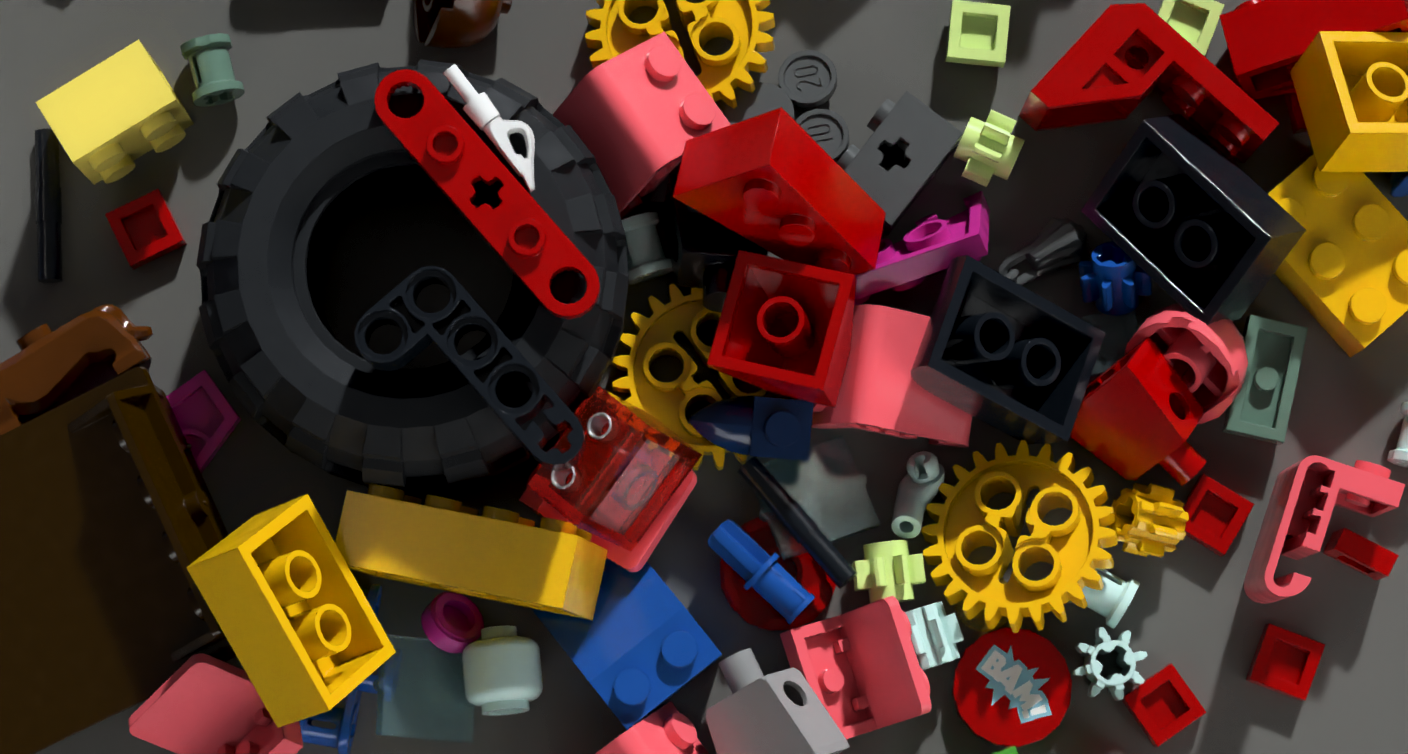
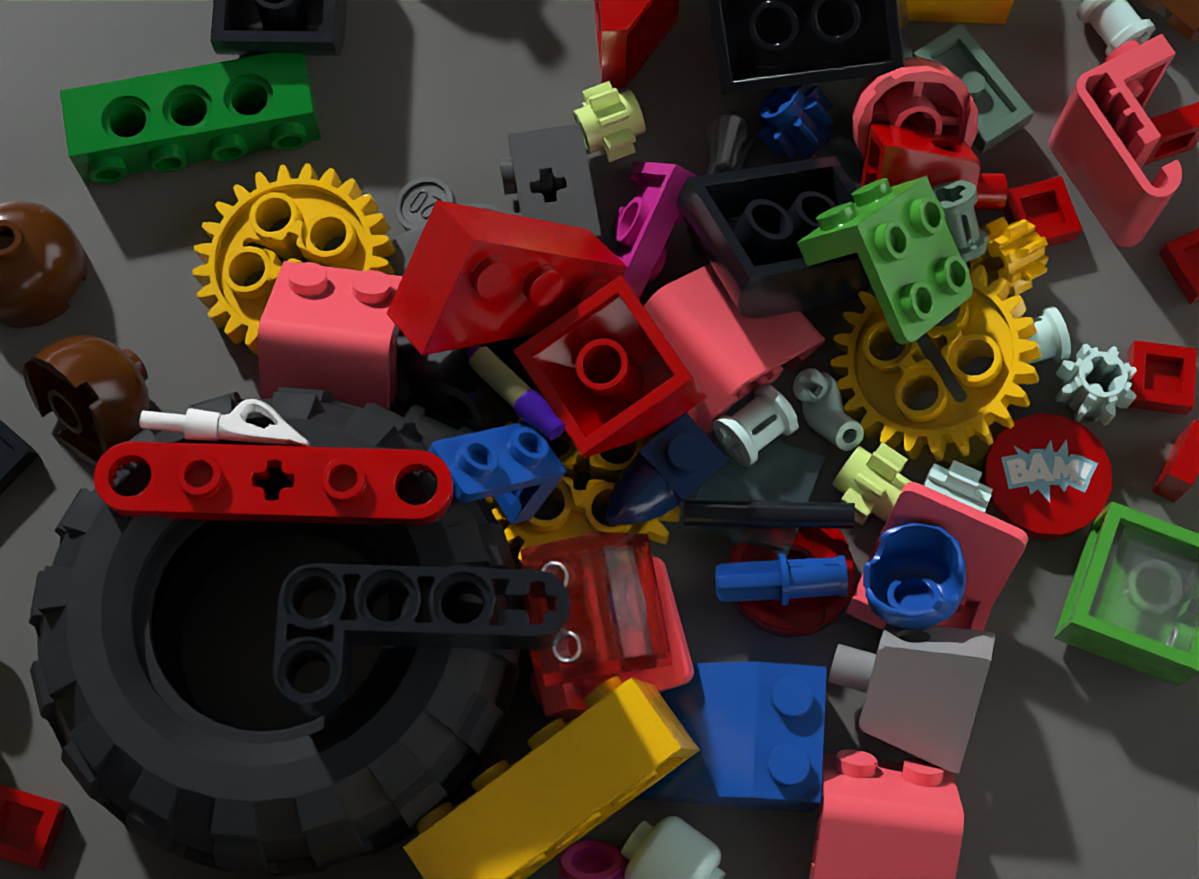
camera: 45 degrees left, 10 degrees down
(649, 315) = (503, 463): none -> blue bracket
(708, 293) = (526, 402): none -> piece
(837, 659) = (915, 576): none -> blue hair
(854, 456) = (755, 425): none -> light aqua bush
(978, 33) = (513, 57): yellowish green plate -> none
(1053, 446) = (903, 251): none -> bright green bracket
(1125, 462) = (958, 205): none -> sand green bush

